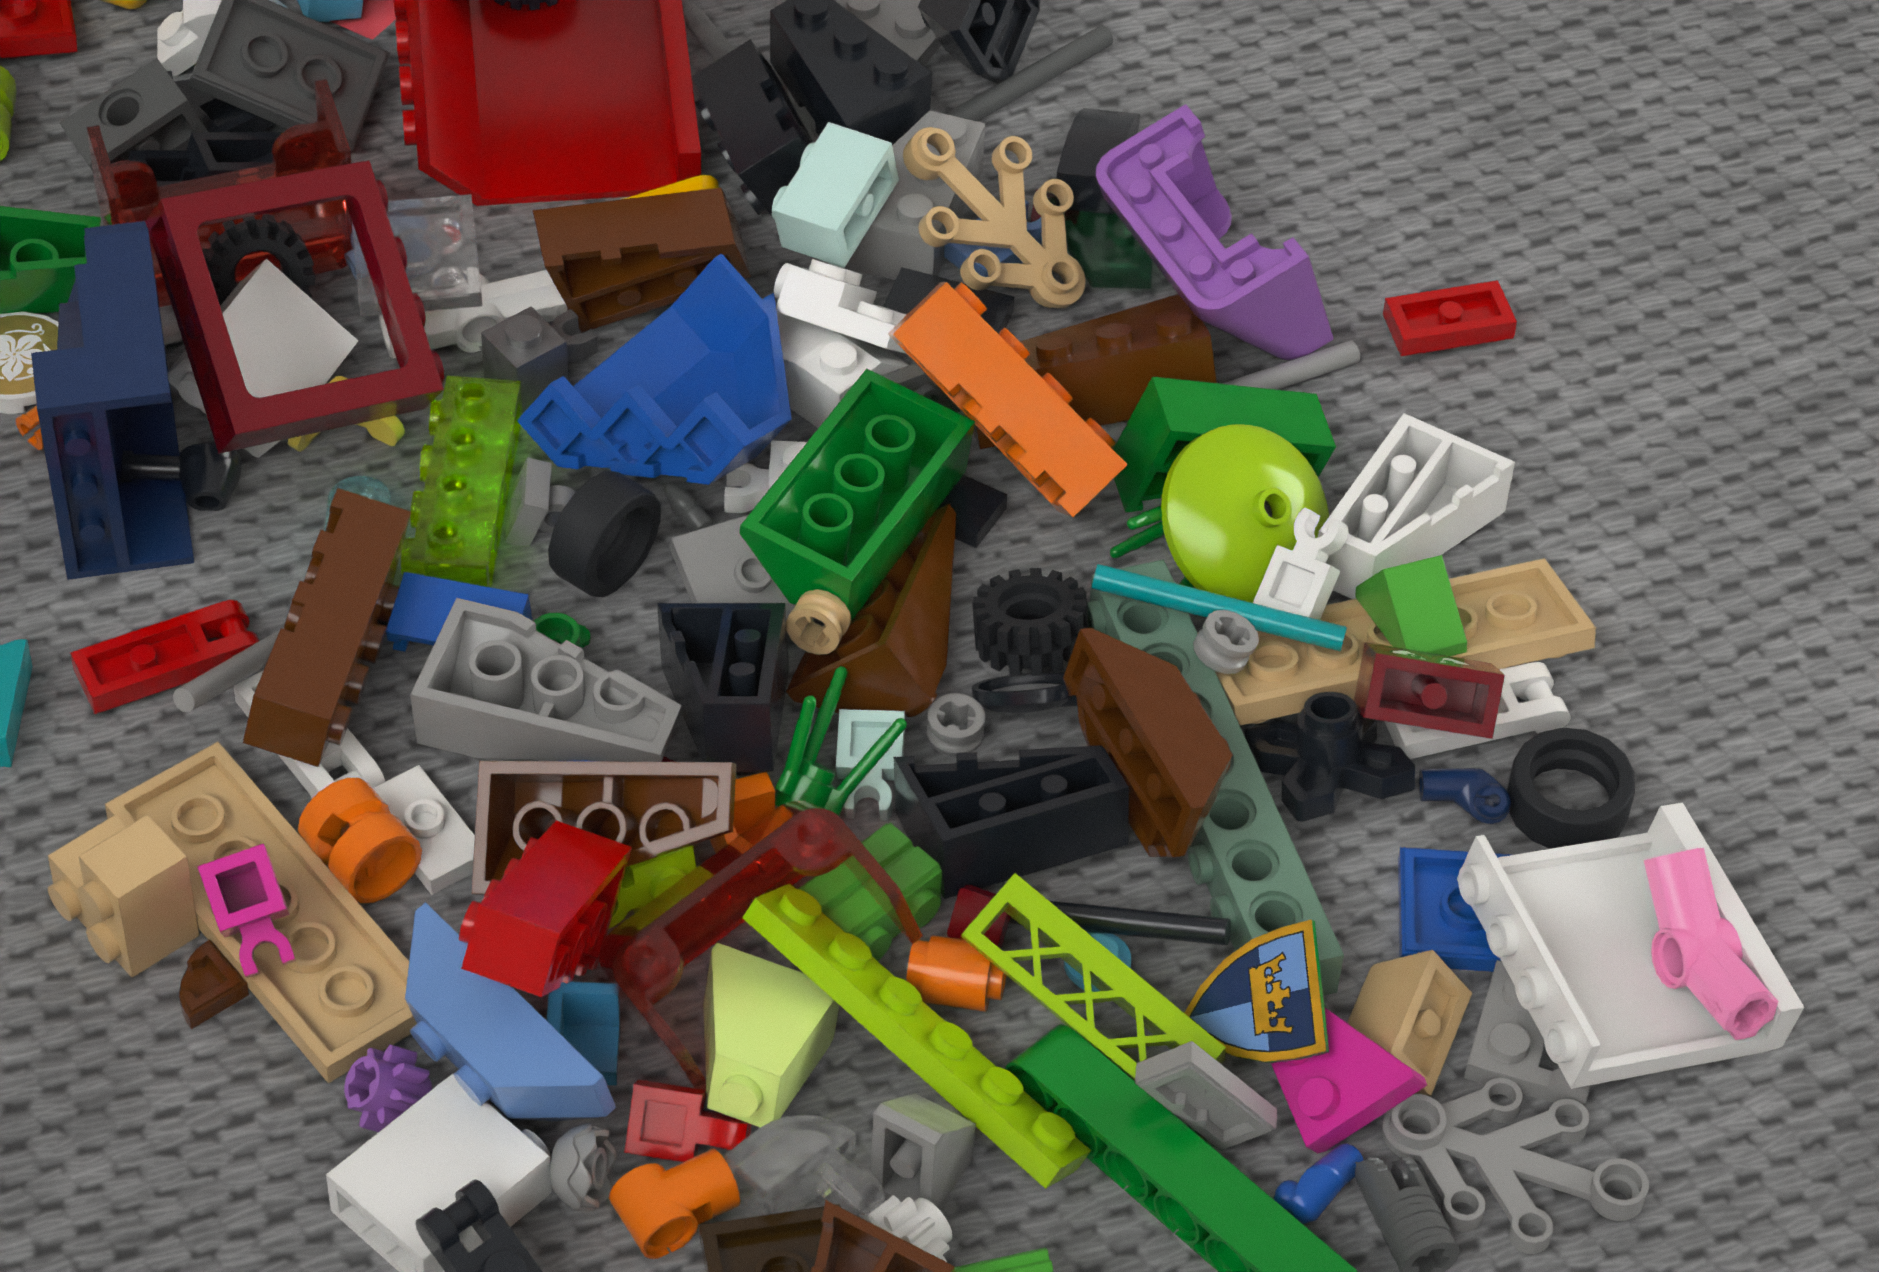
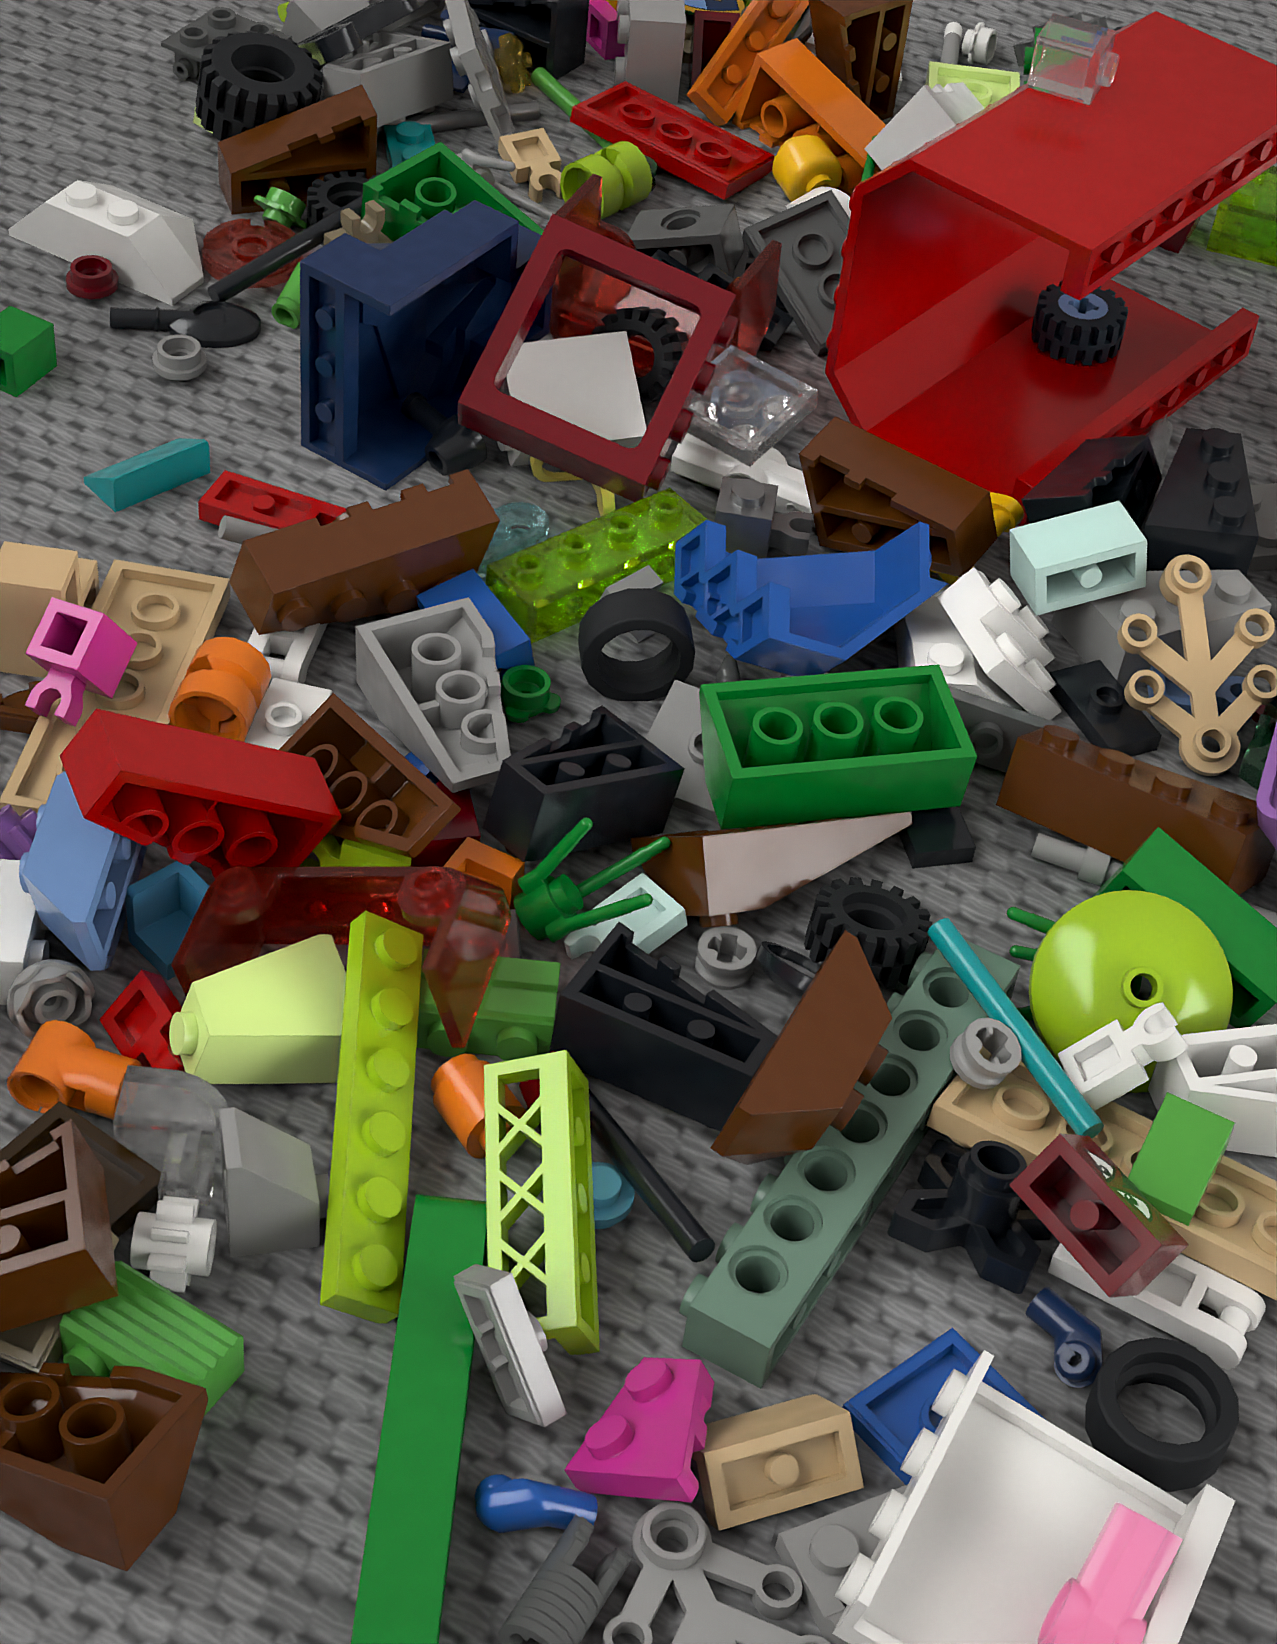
camera: 45 degrees right, 5 degrees down
(810, 635) = (698, 803): tan bush -> none
(1007, 398) = (1023, 762): orange wedge -> none
(1267, 998) = (664, 1323): shield -> none

